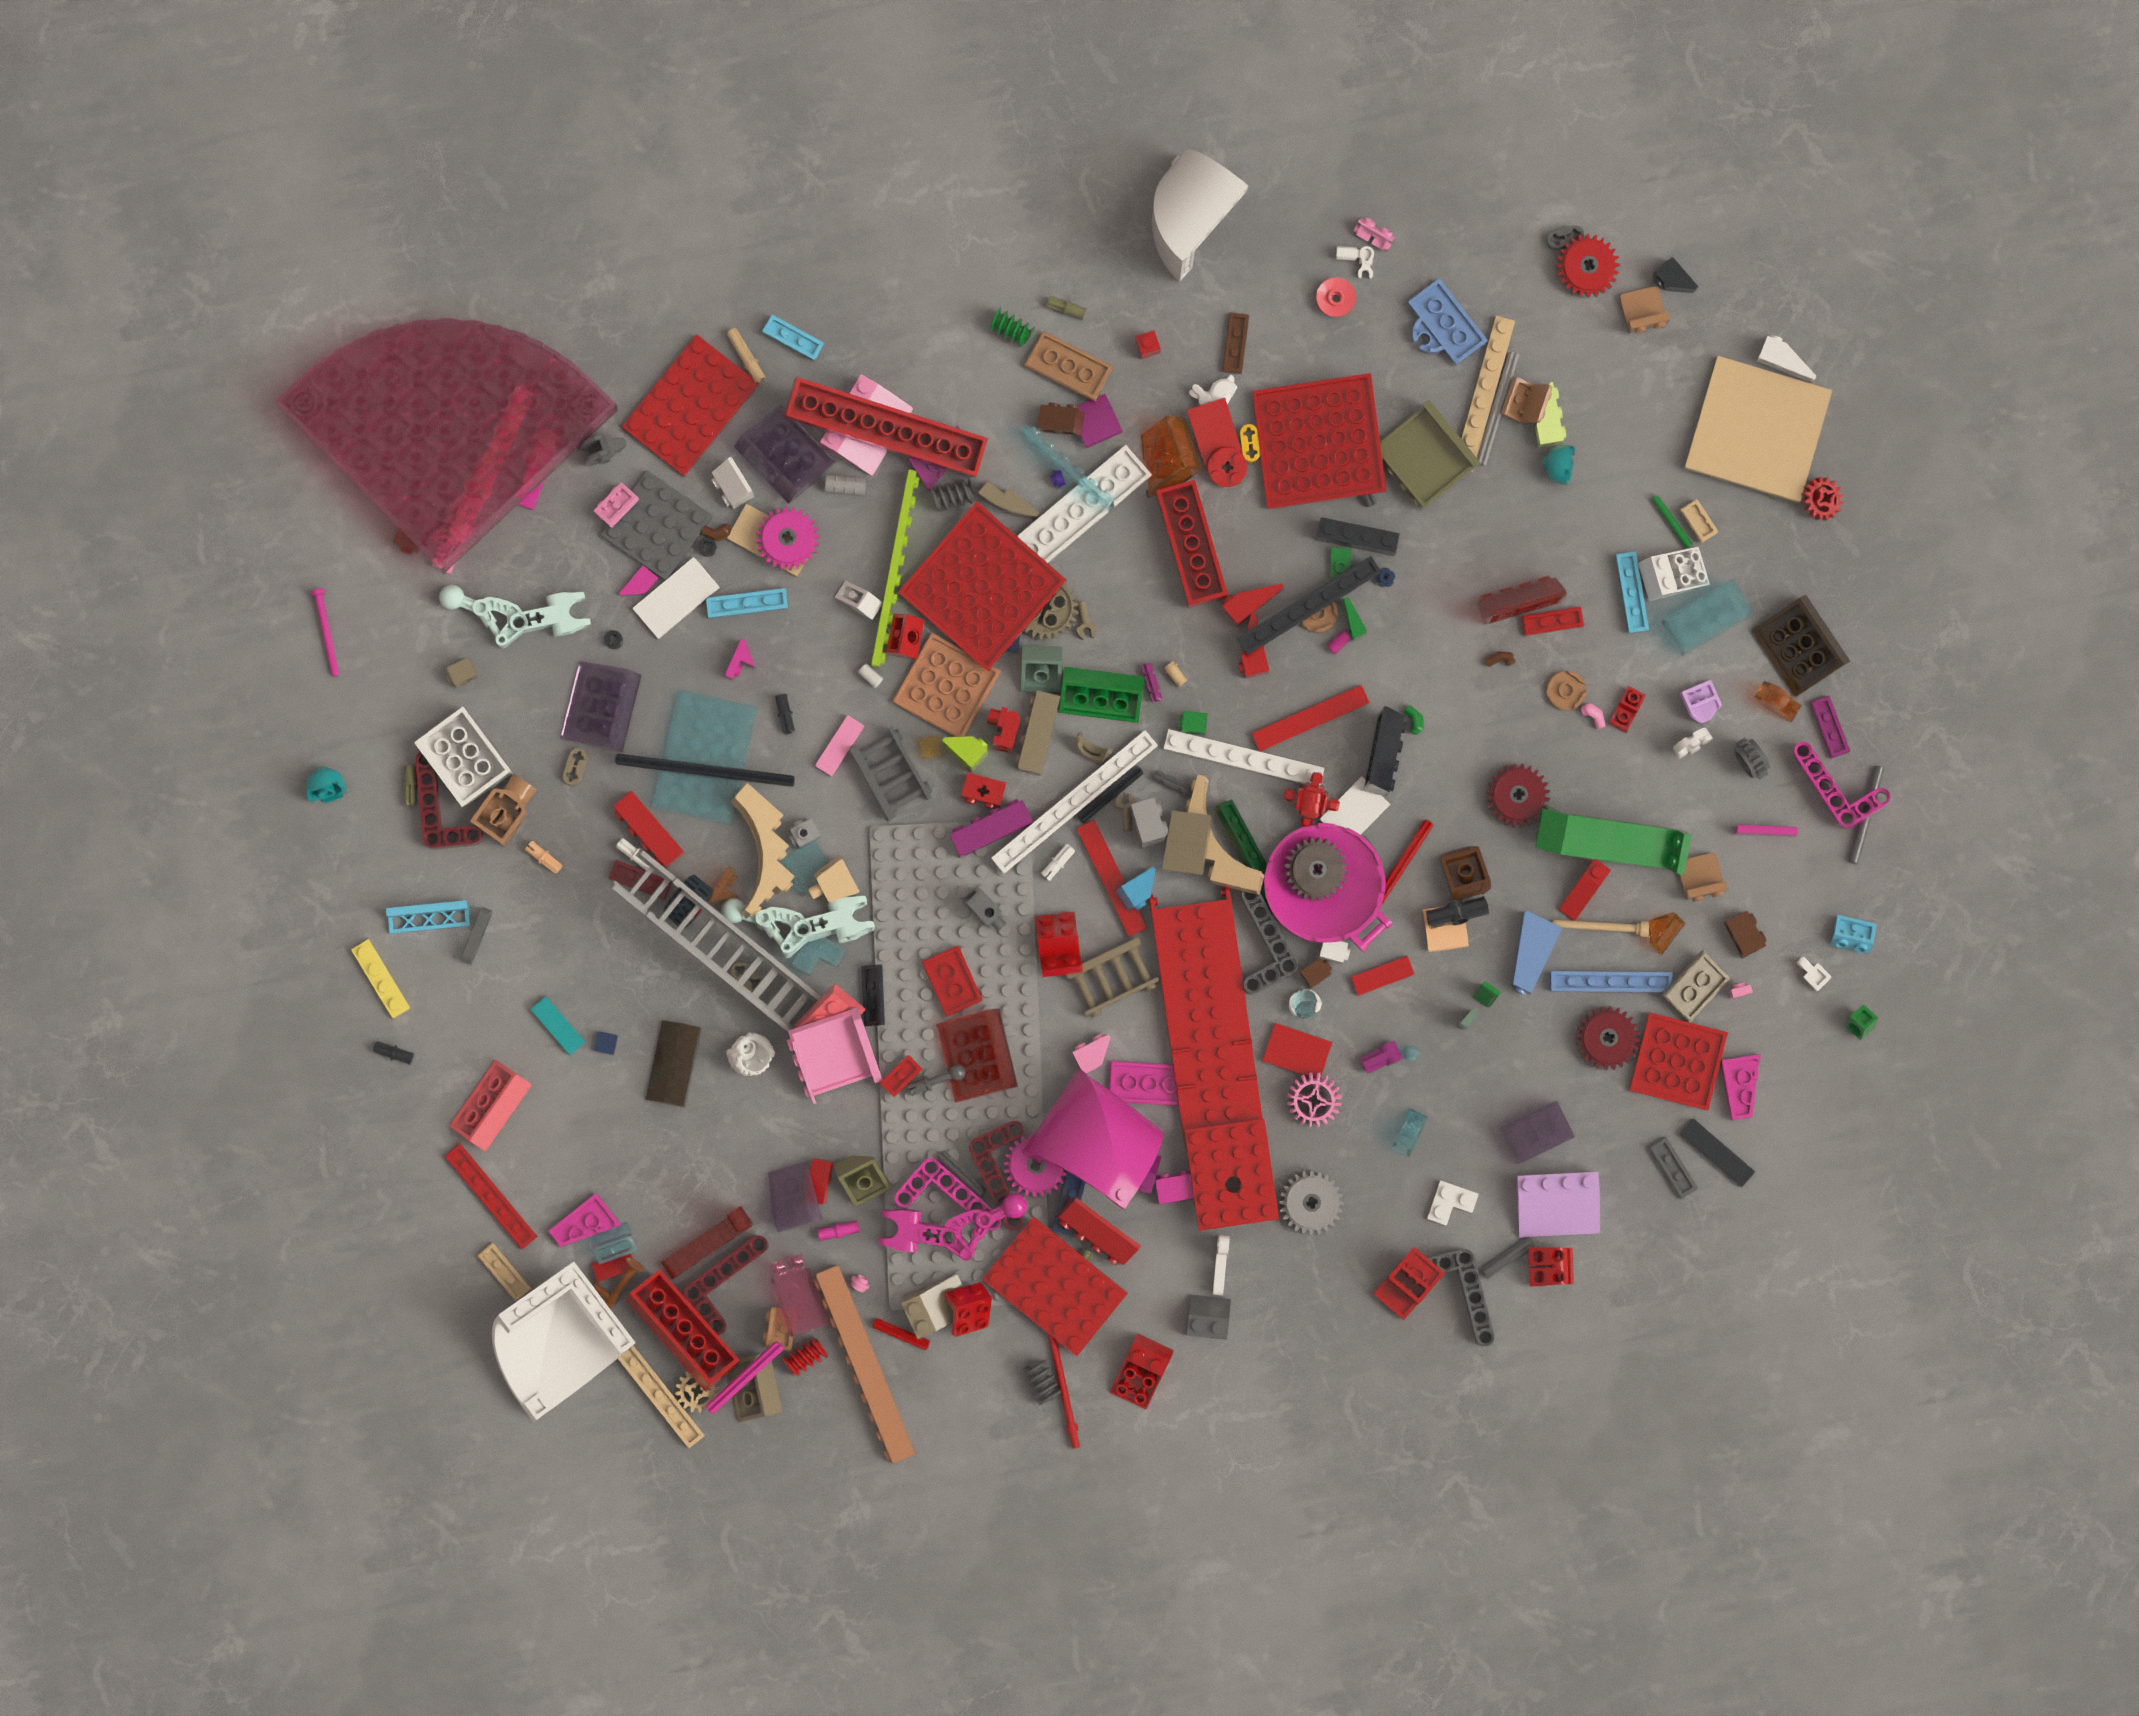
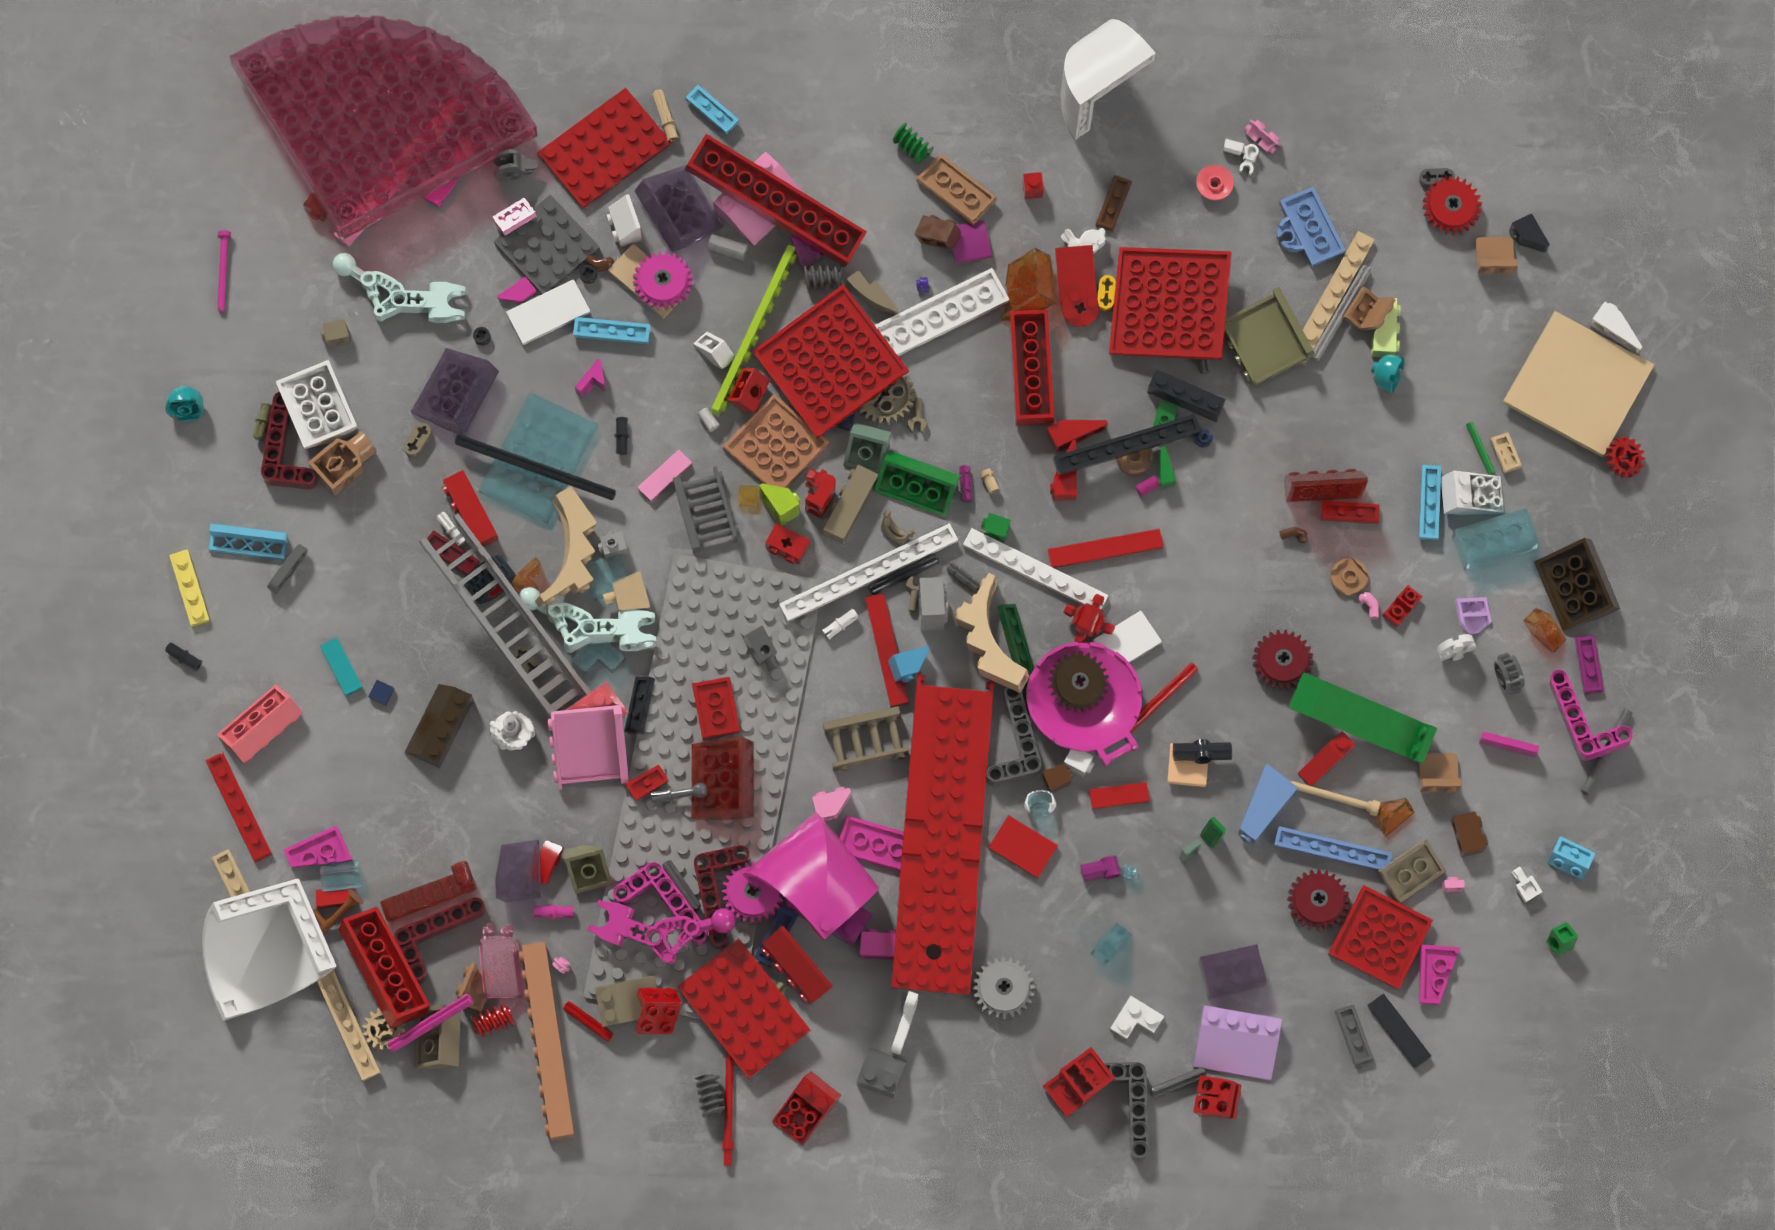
camera: 15 degrees right, 10 degrees down
(544, 857) = (367, 513): light nougat axle -> none
(991, 829) = (785, 578): magenta brick -> none
(1058, 944) = (822, 696): red bracket -> none
(1062, 462) = (937, 279): clear light blue plate -> none
(1066, 307) = (966, 138): olive axle -> none
(1187, 843) = (964, 630): dark tan tile -> none
(1305, 1098) = (1013, 886): bright pink gear -> none
(1384, 752) = (1167, 591): black slope -> none
(1417, 720) = (1204, 573): green arm -> none
(1465, 872) = (1218, 719): reddish brown slope -> none

